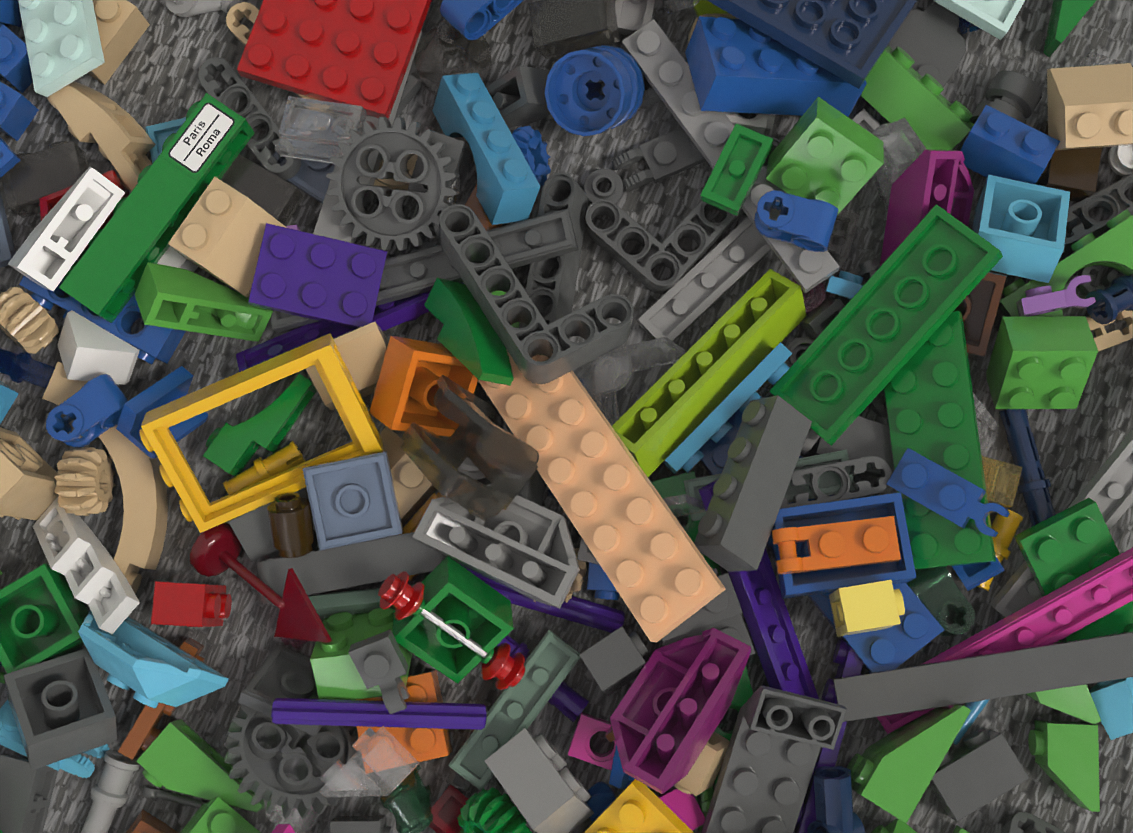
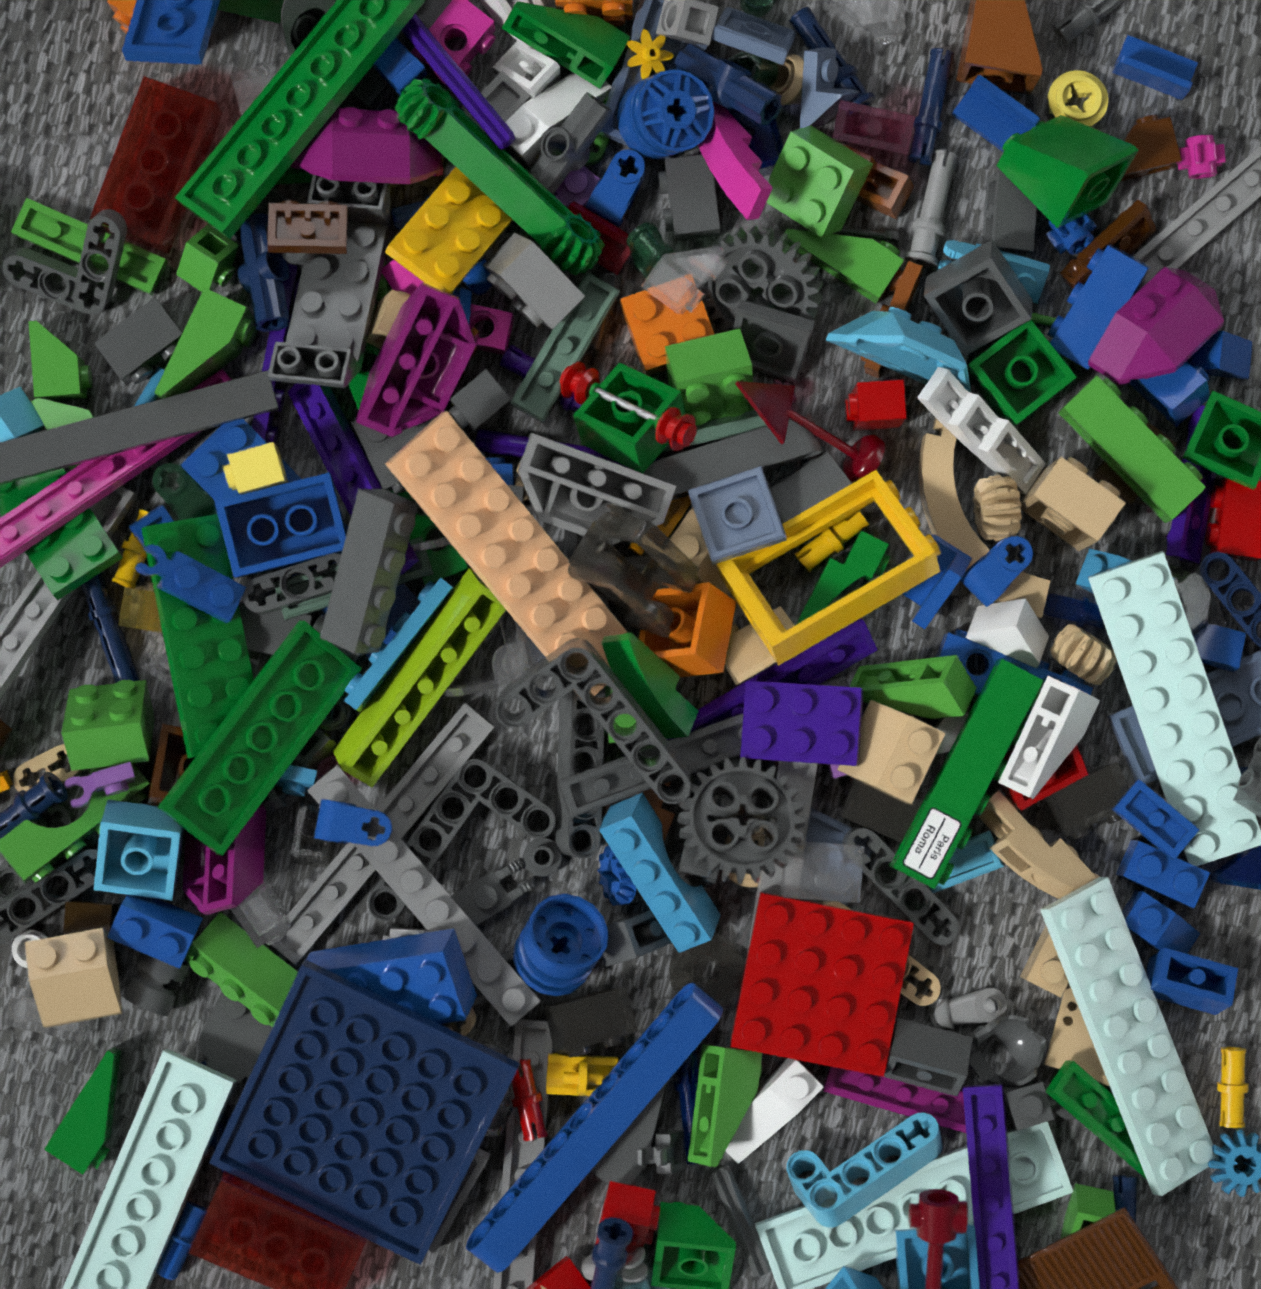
camera: 165 degrees right, 5 degrees up
(291, 525) = (791, 485): dark brown brick -> none
(374, 714) = (684, 326): dark purple axle -> none
(382, 664) = (684, 367): dark grey plate -> none
(736, 169) = (413, 871): green plate -> none
(825, 157) = (330, 892): bright green brick -> none
(837, 545) = (287, 521): orange plate -> none

